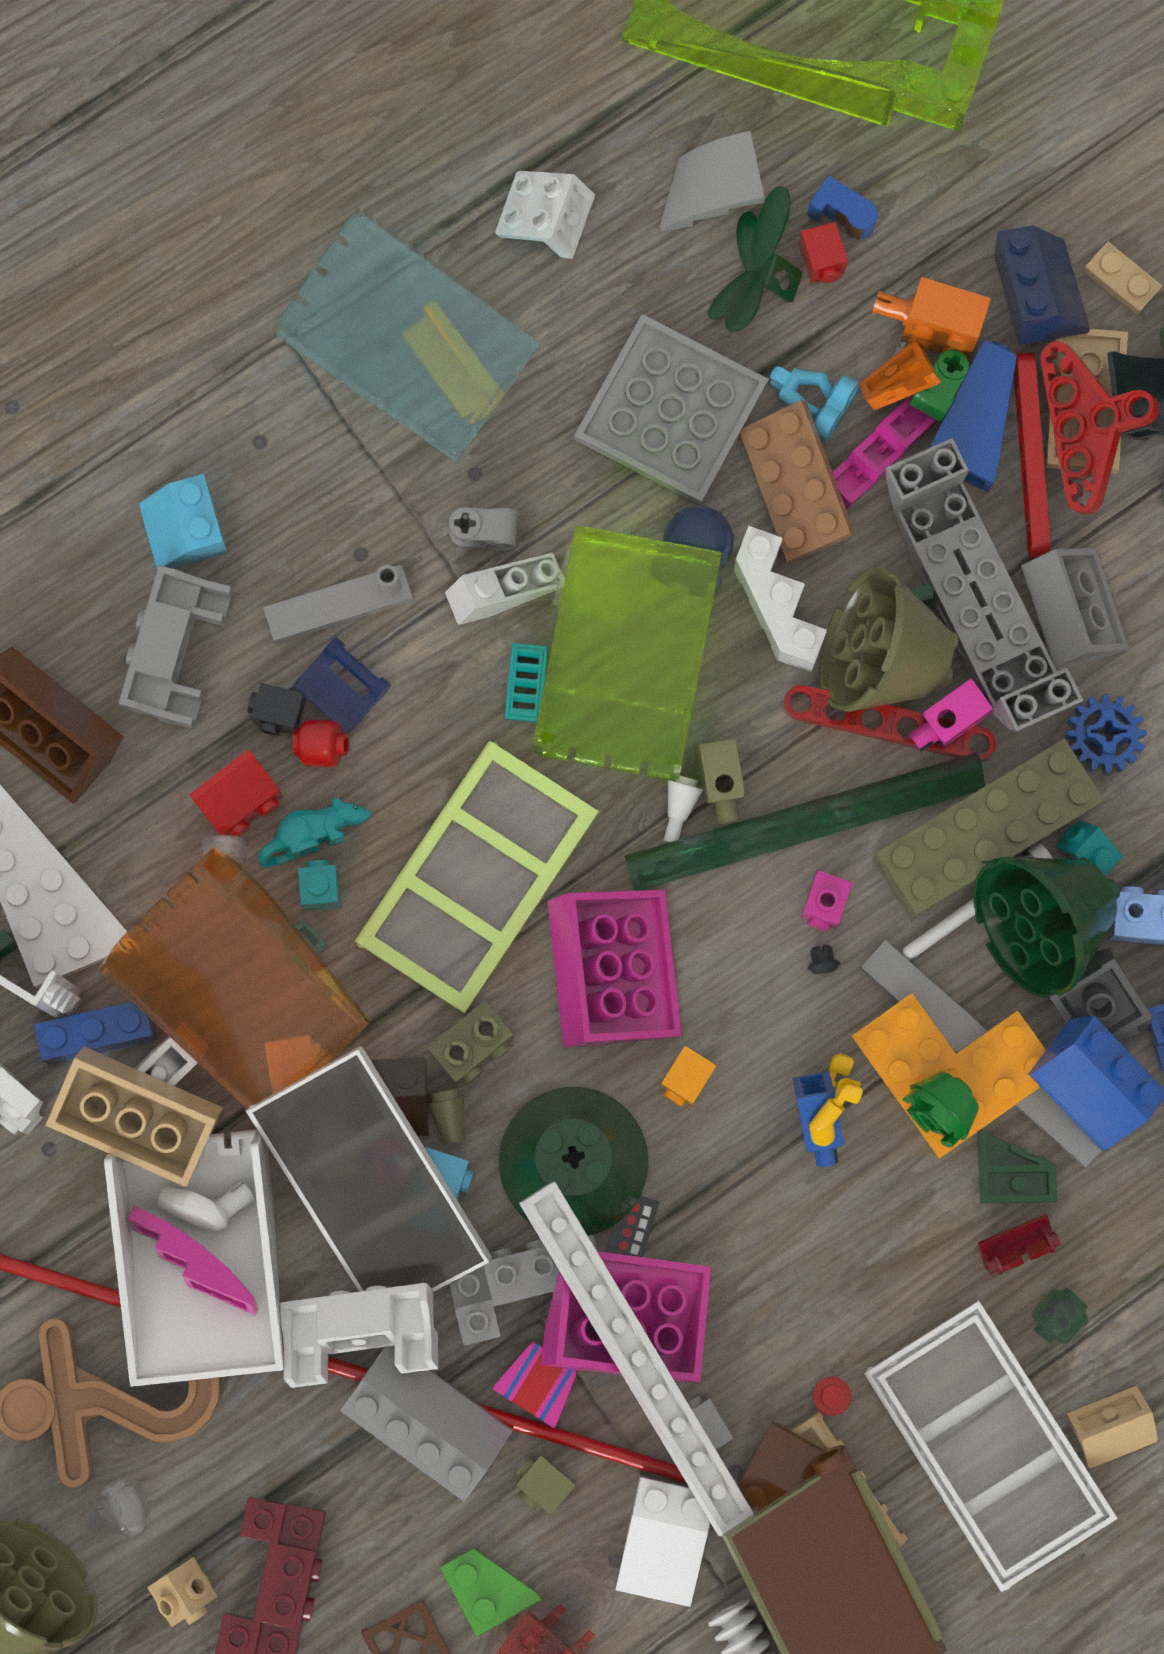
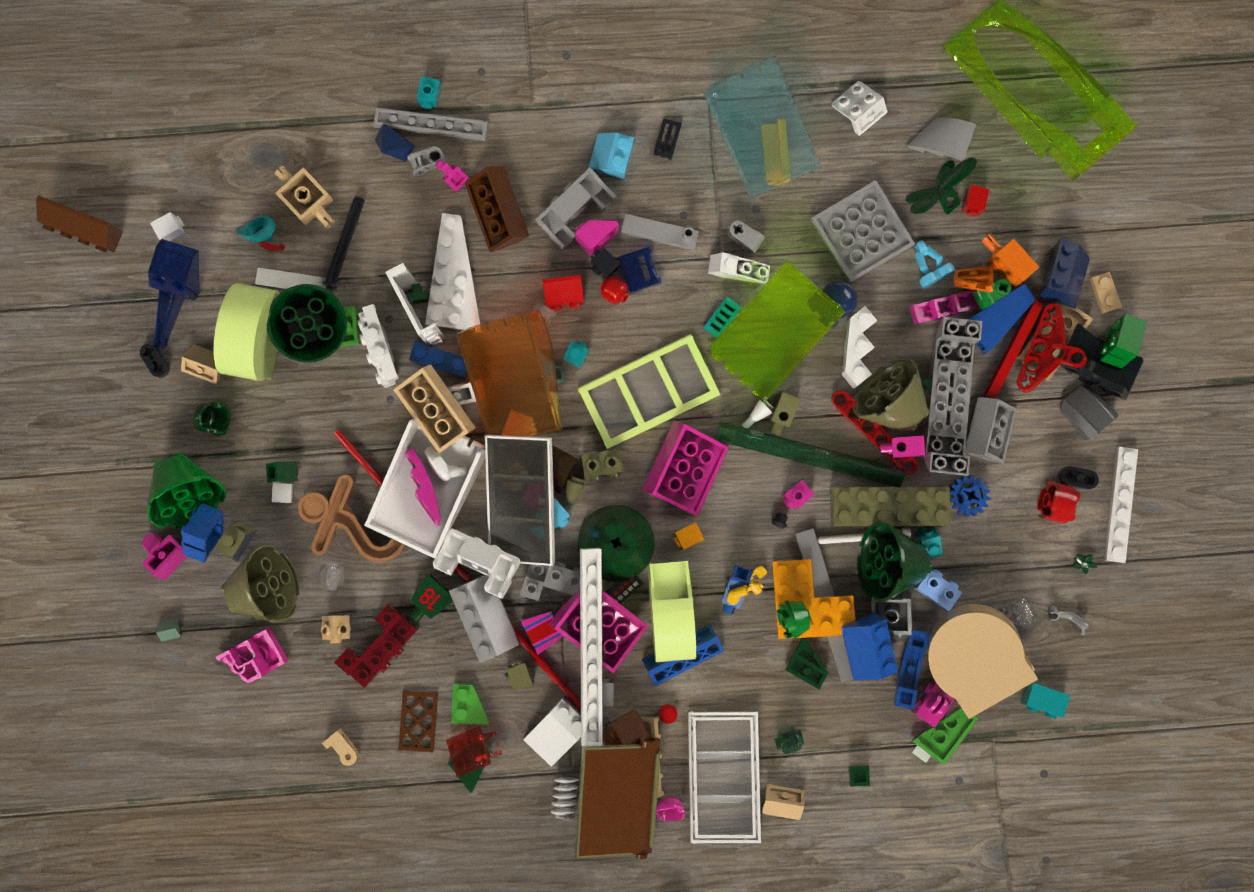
camera: 25 degrees right, 5 degrees up
(234, 670) = (595, 234): none -> dark pink slope
(268, 473) = (663, 154): none -> black tile
(304, 830) = (584, 325): teal animal -> none
(316, 1445) = (430, 599): none -> dark green torso
(734, 1215) = (672, 611): none -> yellowish green brick
(792, 1278) = (704, 638): none -> blue fence
(797, 481) = (899, 298): medium nougat plate -> none
(844, 208) = (998, 185): blue leg -> none
(932, 1555) = (670, 809): none -> dark pink hair
(1006, 1248) = (783, 696): dark red hinge -> none

